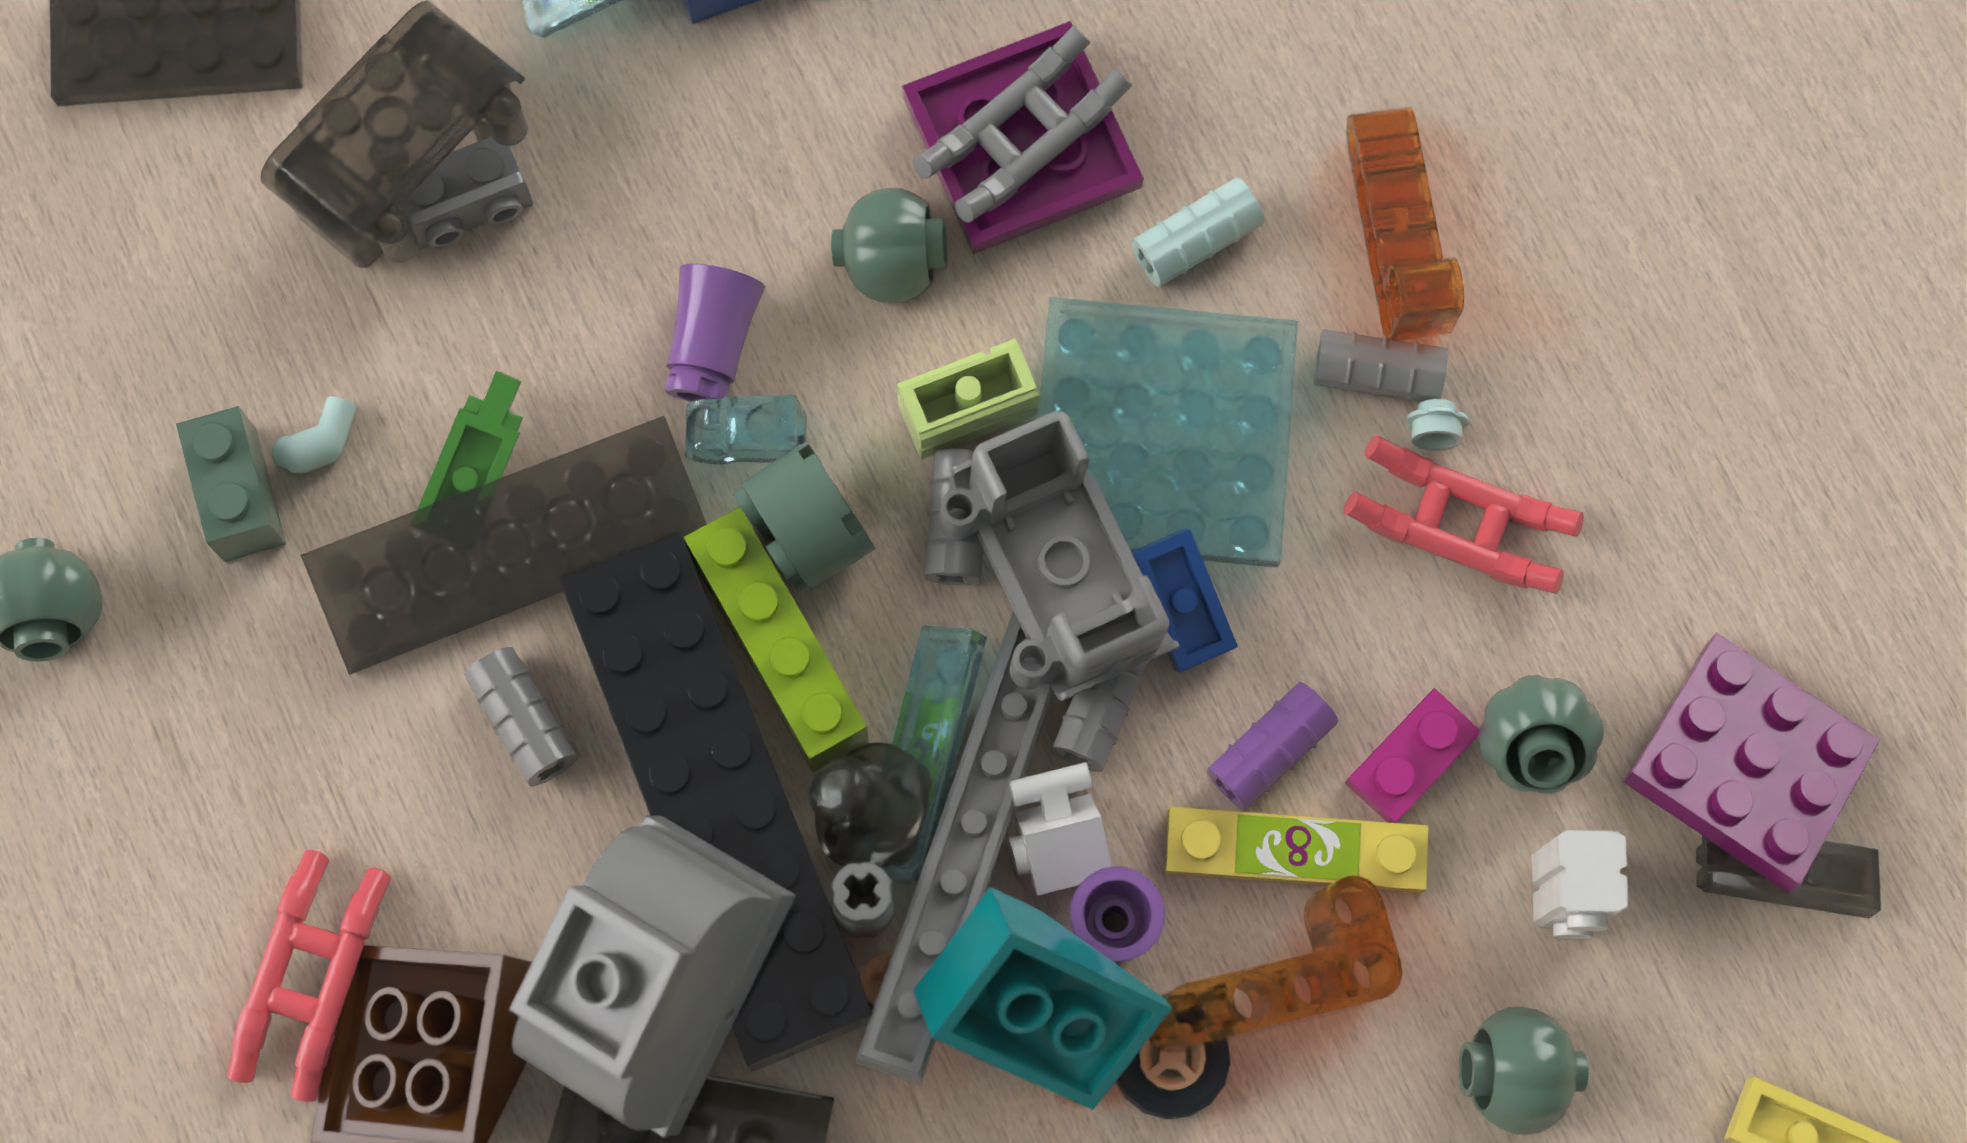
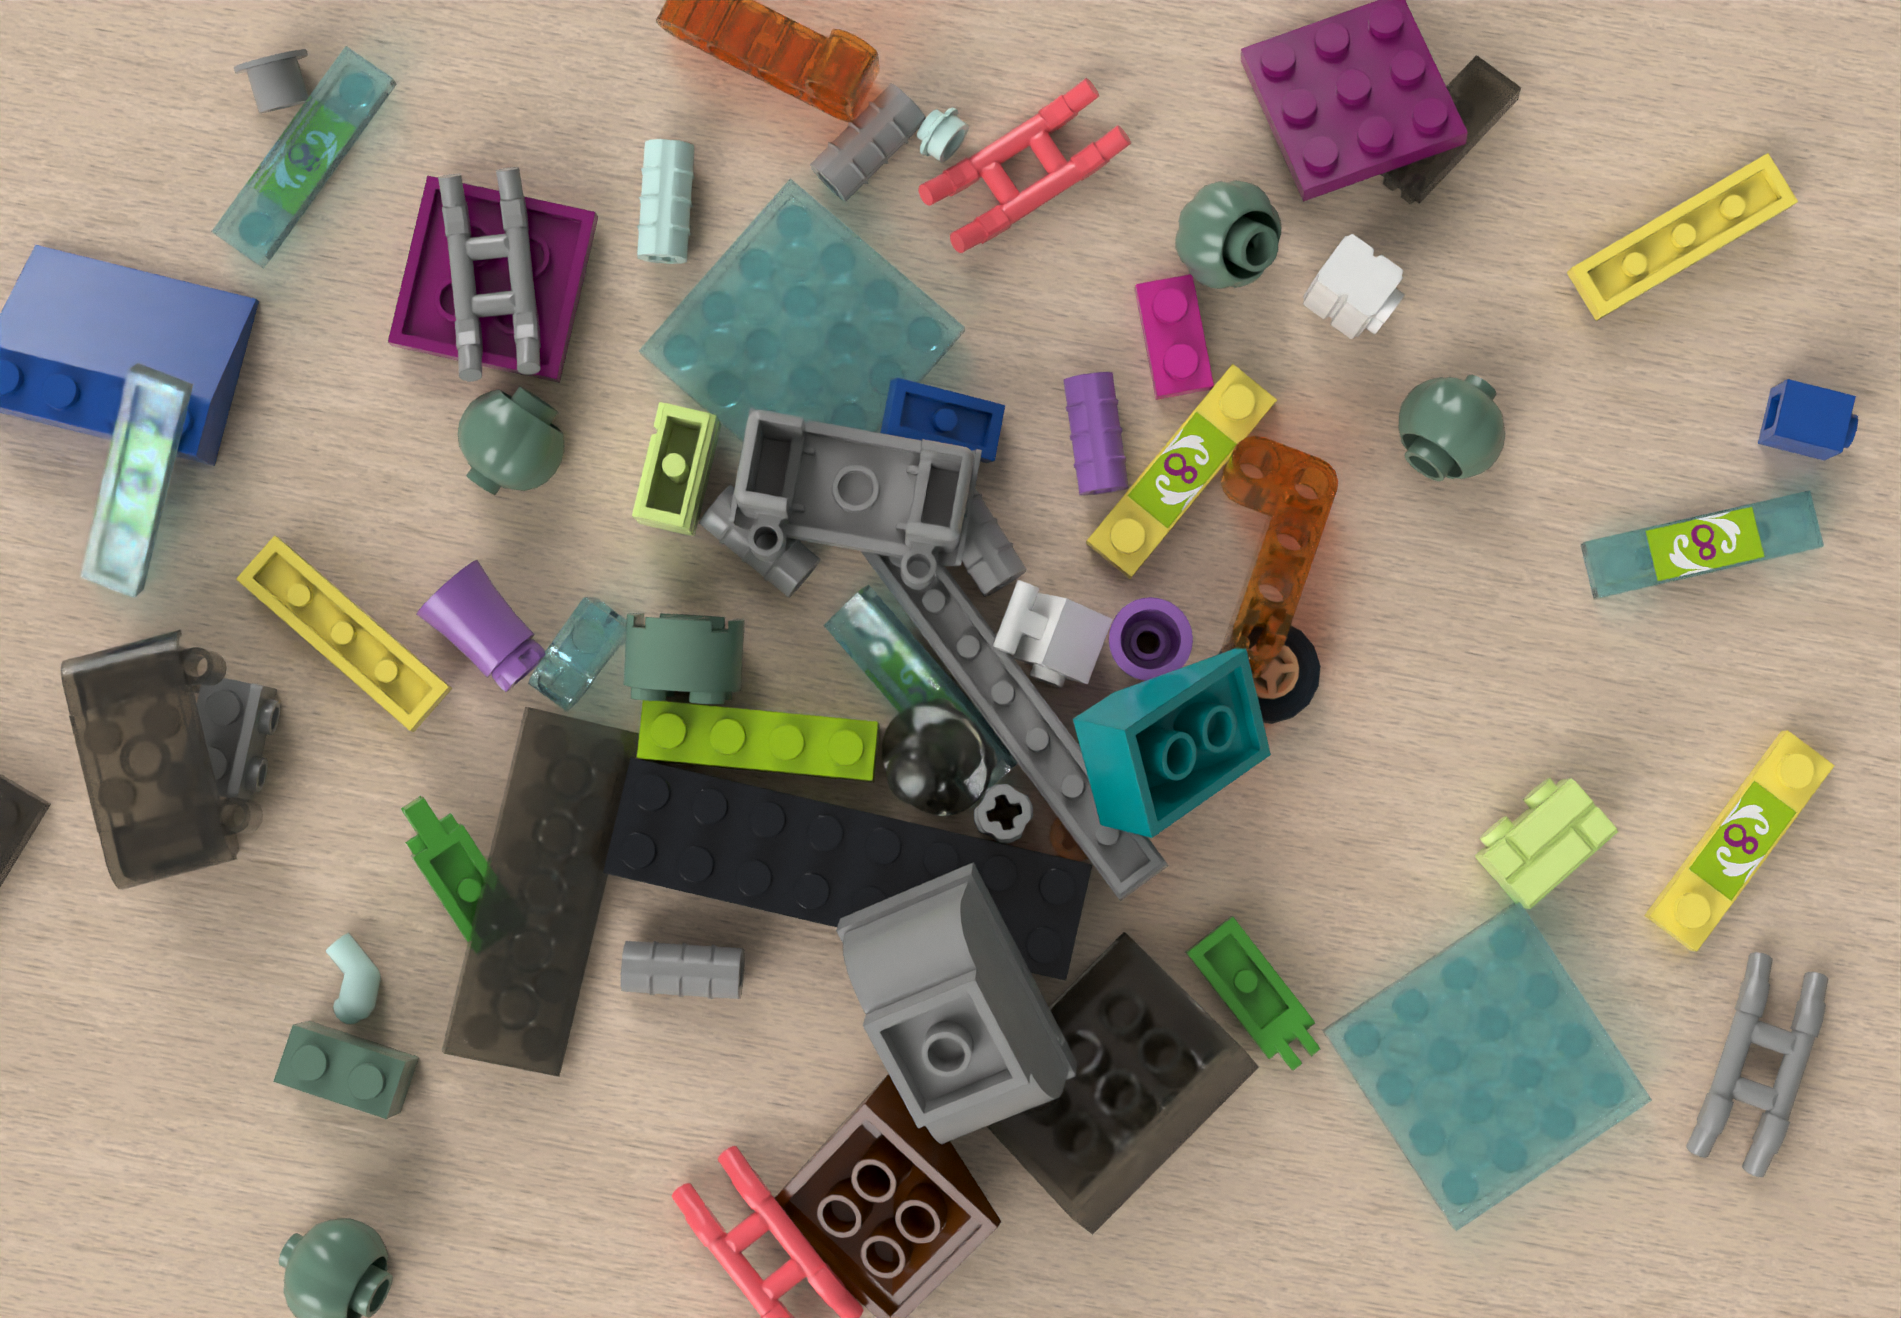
camera: 50 degrees left, 10 degrees up
(620, 224) = (344, 633): none -> light yellow plate

